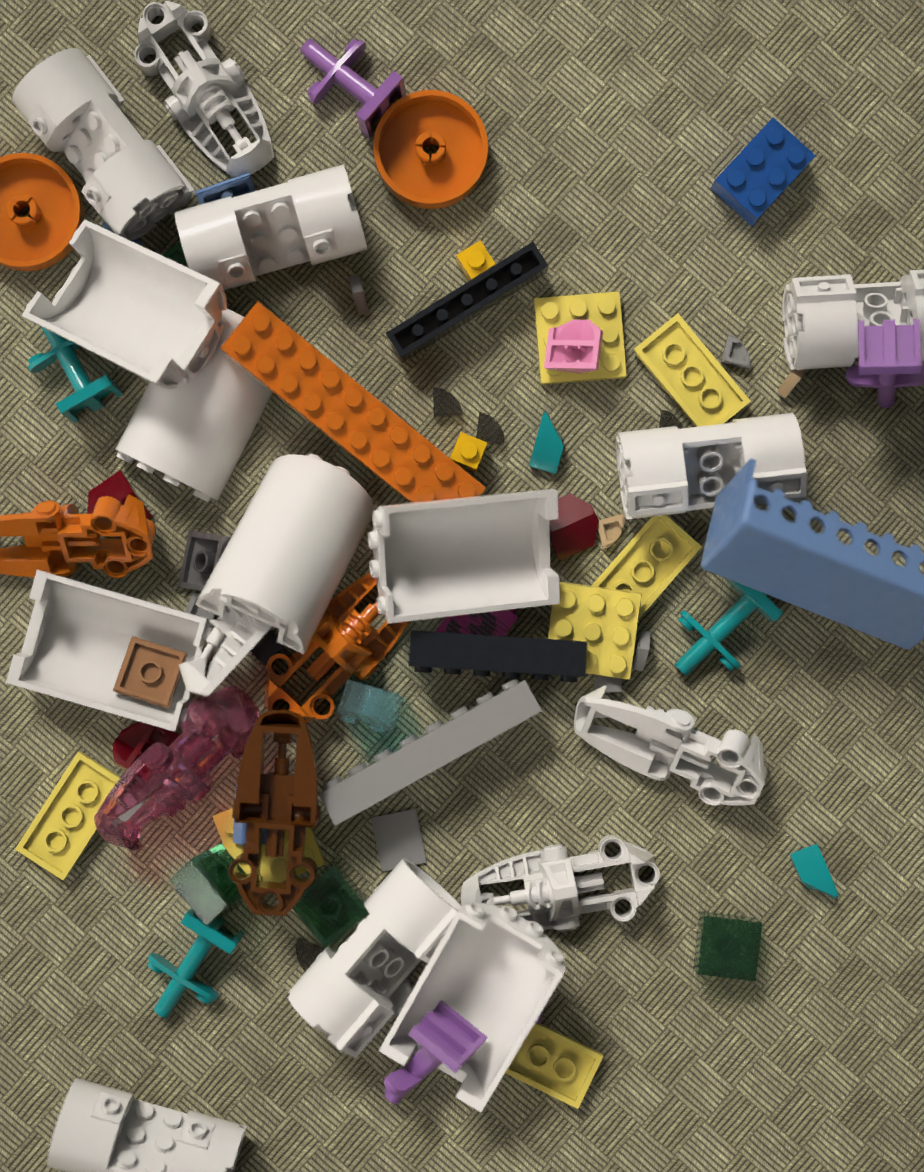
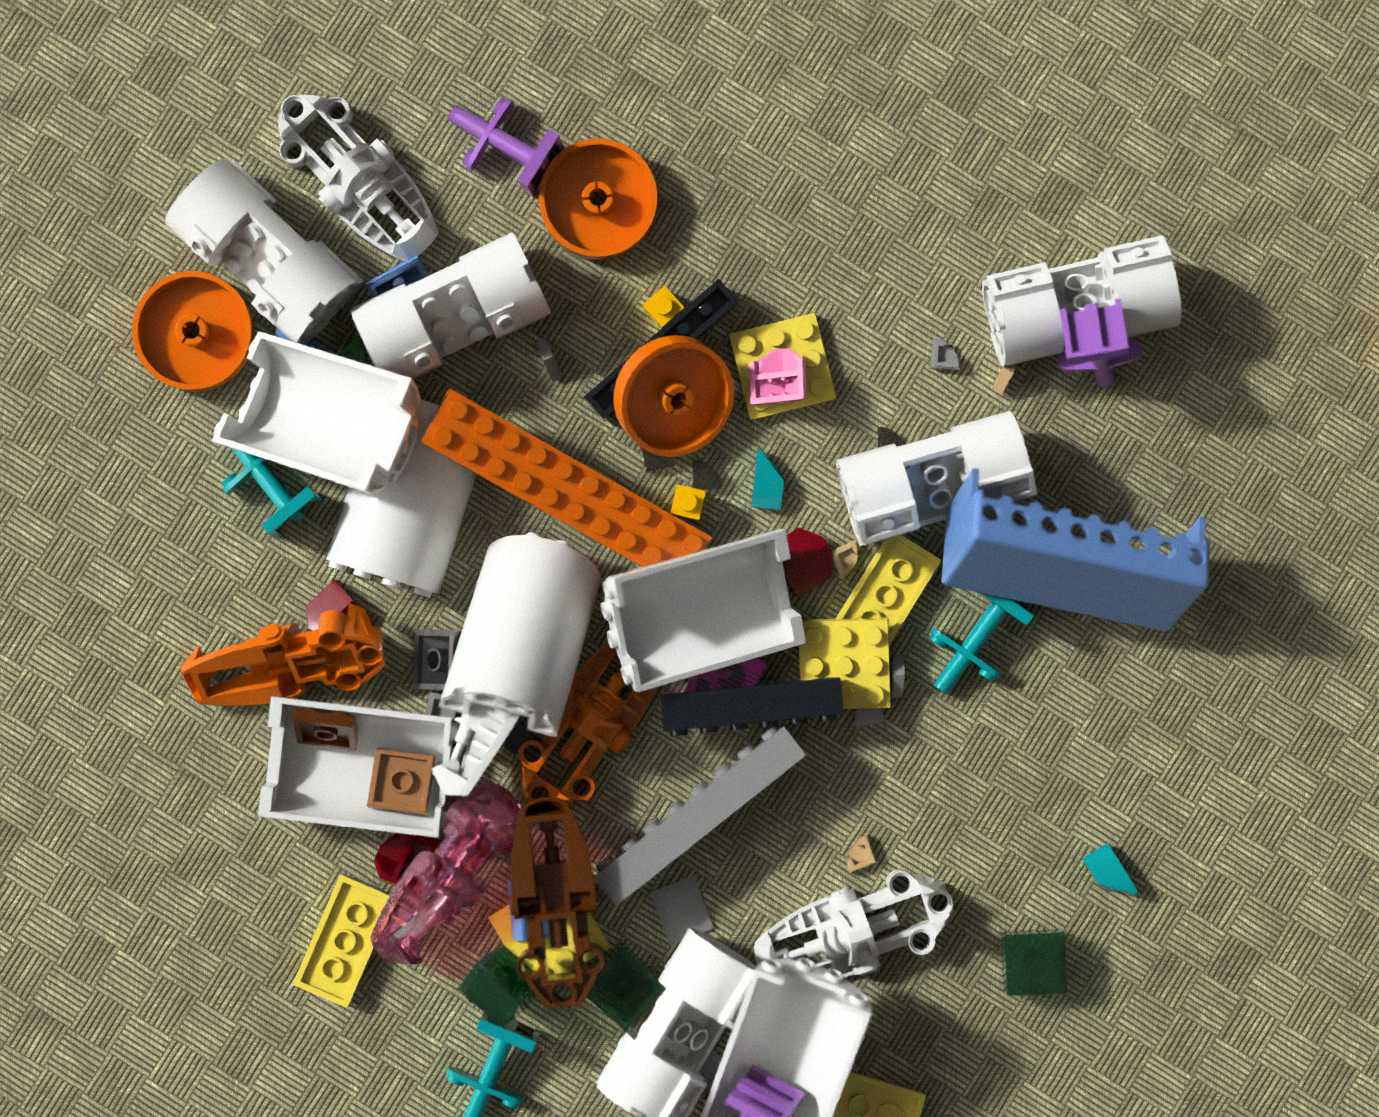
camera: 15 degrees left, 0 degrees up
(85, 610) = (325, 729): none -> reddish brown plate
(307, 952) = (607, 1040): clear smoke tile -> none
(370, 705) = (631, 778): clear light blue brick -> none
(473, 317) = (674, 367): none -> orange piece
(578, 815) = (860, 855): none -> tan tile
(670, 744) = (942, 767): white piece -> none
(691, 374) = (902, 386): light yellow plate -> none
(762, 171) = (940, 167): blue brick -> none

